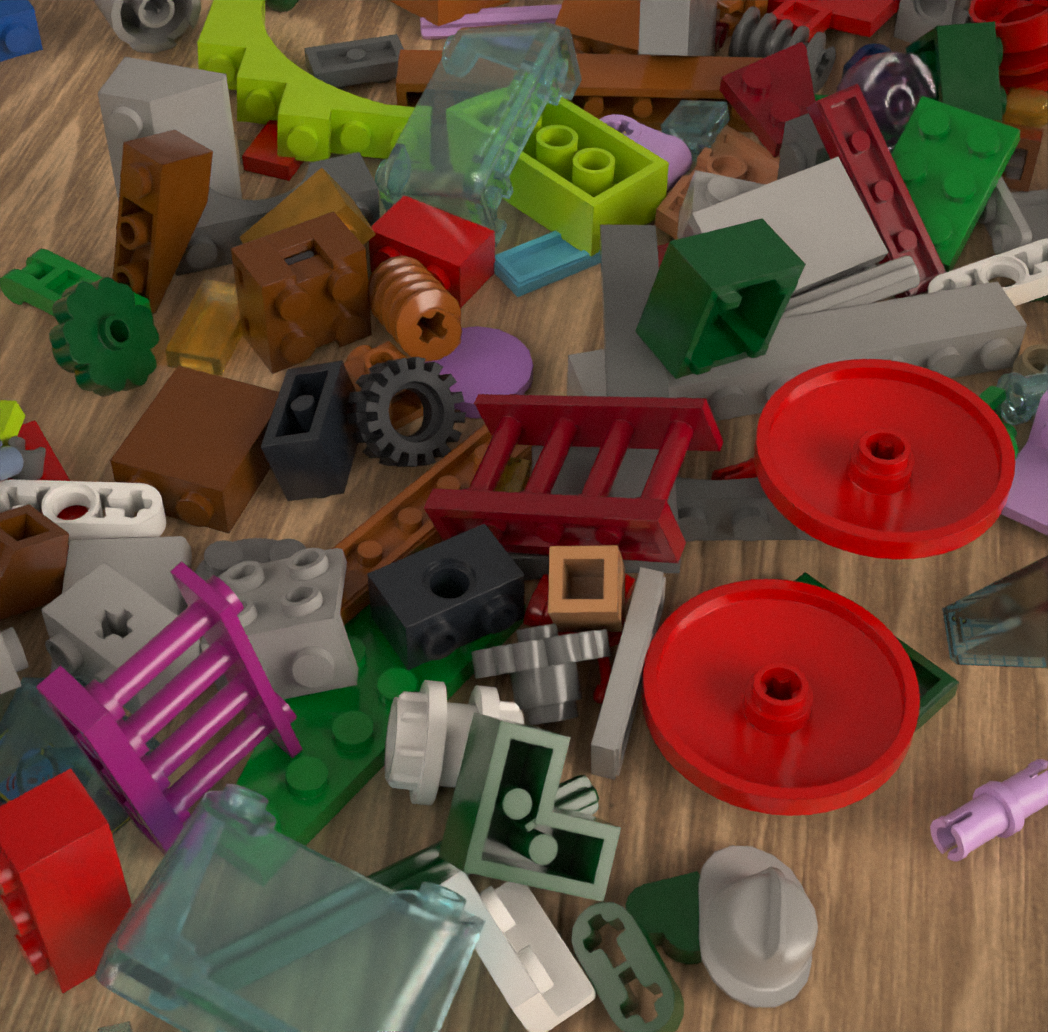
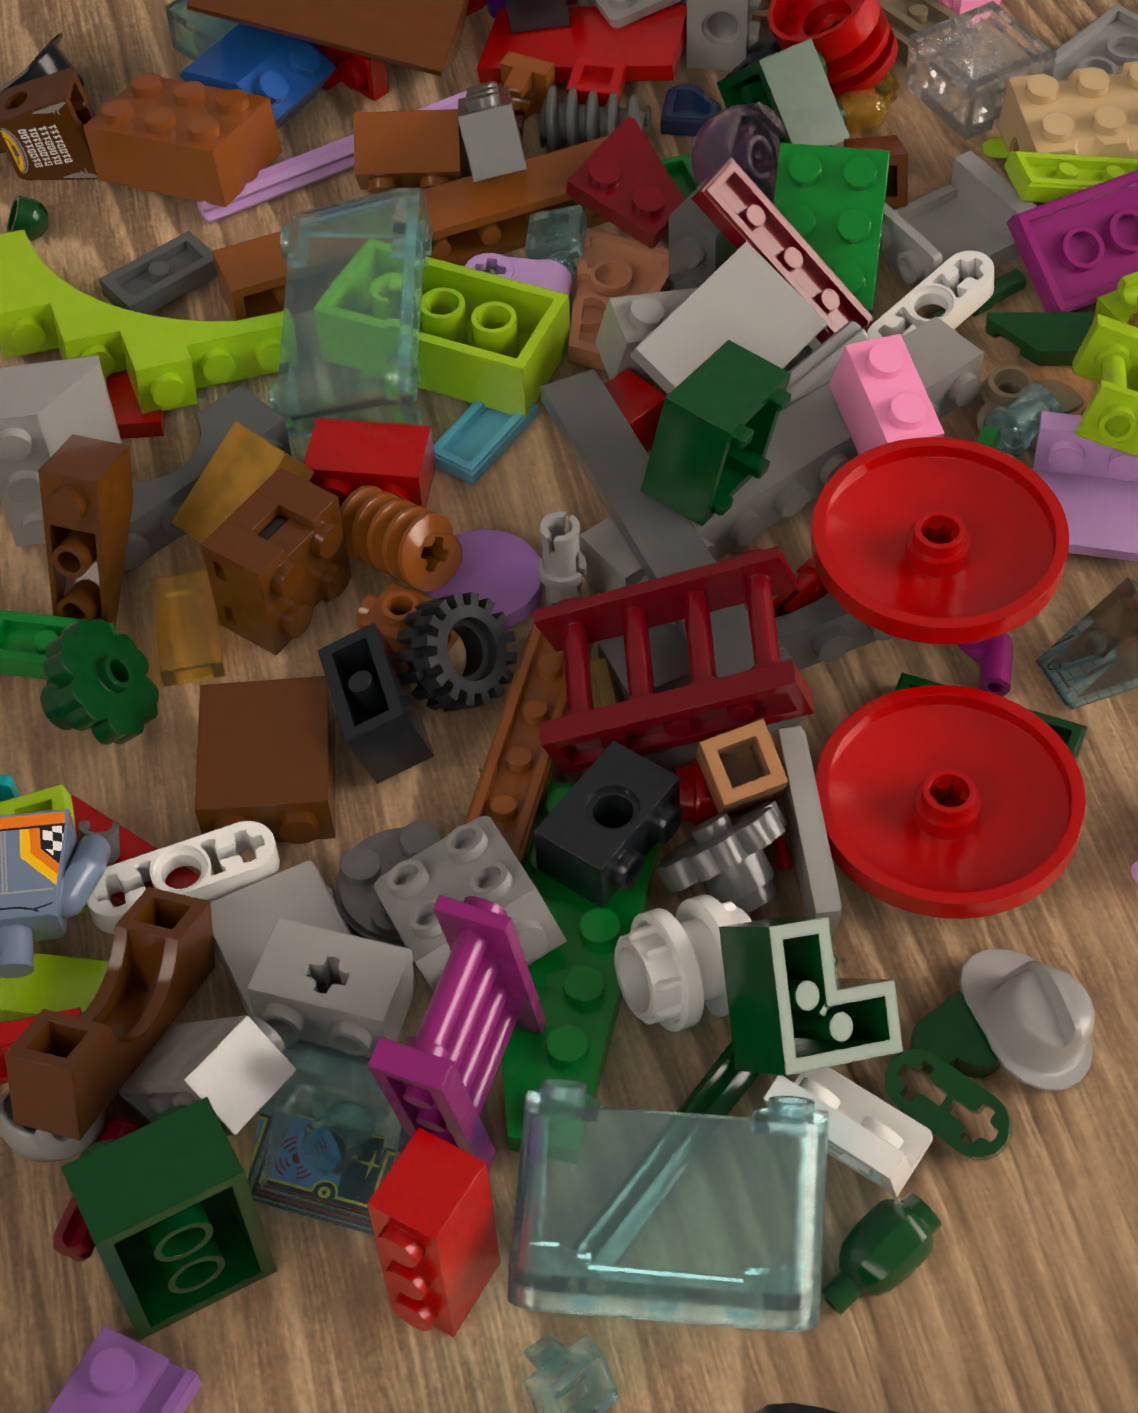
camera: 20 degrees left, 5 degrees up
(537, 370) = (562, 560): none -> light grey pin
(901, 316) = (882, 394): none -> bright pink brick
(903, 587) = (995, 662): none -> magenta arm

